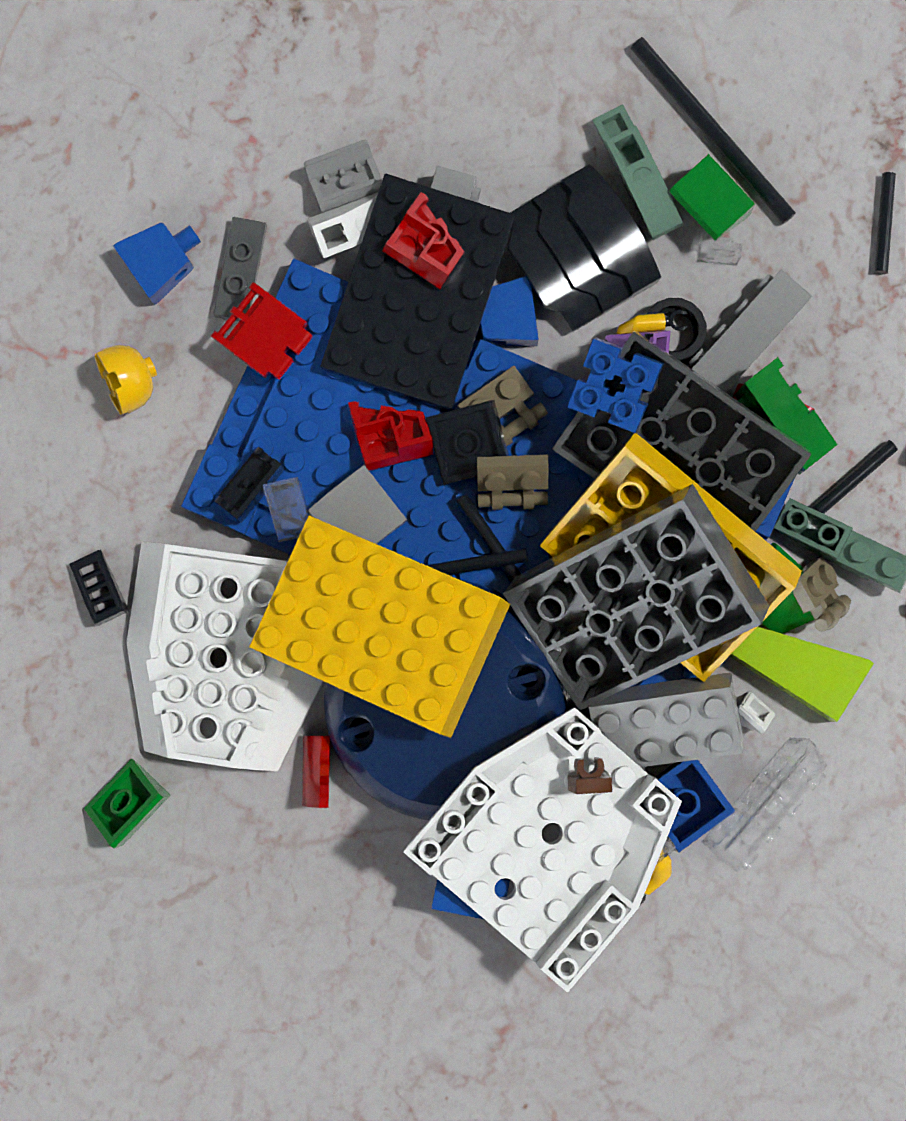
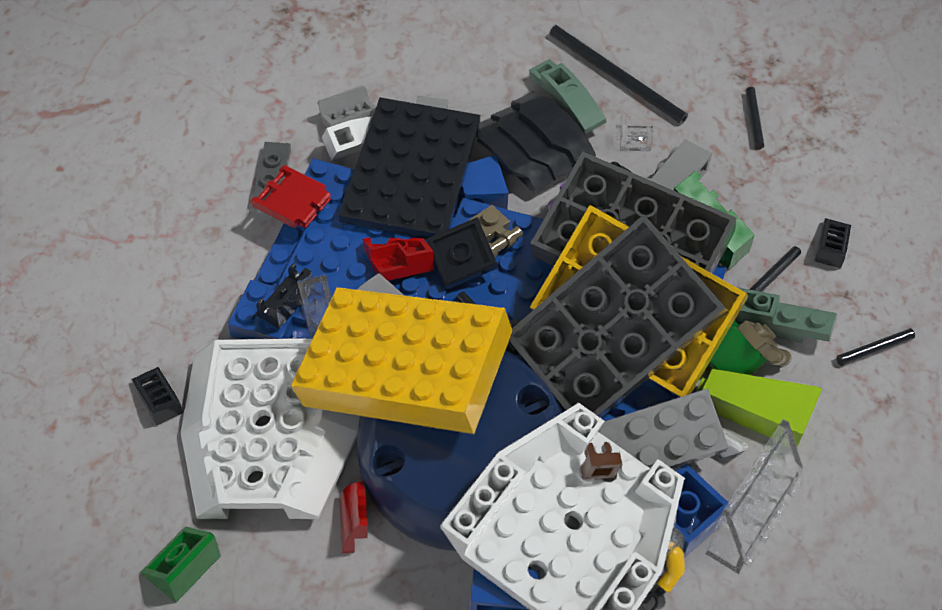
camera: 10 degrees left, 30 degrees down
(126, 376) = (181, 239): yellow cylinder -> none
(158, 258) = (206, 169): blue torso -> none
(424, 244) = (414, 130): red slope -> none
(512, 473) = (499, 266): dark tan plate -> none
(594, 394) = (574, 180): blue brick -> none
(712, 198) = (628, 98): green slope -> none

